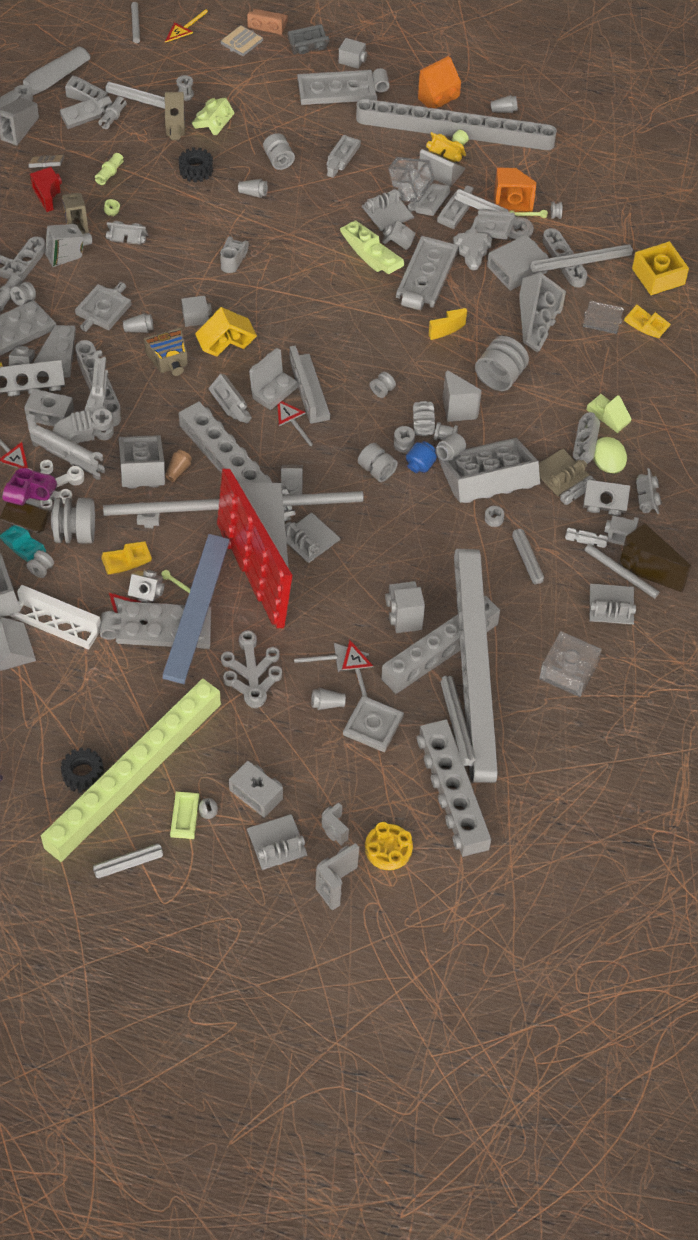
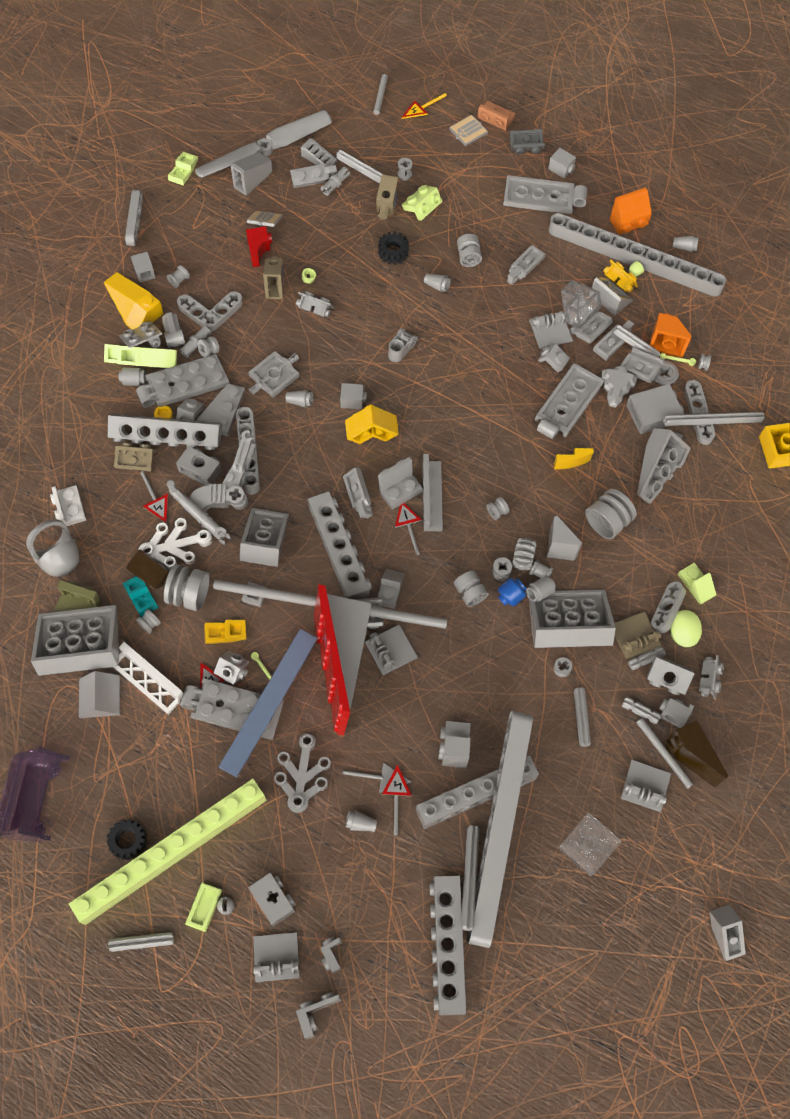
camera: 15 degrees right, 10 degrees up
(27, 485) = (157, 542): magenta piece -> none
(65, 243) = (257, 304): light grey torso -> none
(109, 168) = (317, 236): yellowish green pin -> none
(167, 351) = (317, 432): dark tan torso -> none
(179, 463) = (294, 549): medium nougat cone -> none
(370, 249) = (524, 366): yellowish green slope -> none
(373, 723) = (394, 857): light grey plate -> none
(388, 846) = (374, 988): yellow tile -> none
(603, 317) = (718, 481): clear piece -> none
(648, 324) = (757, 497): yellow slope -> none

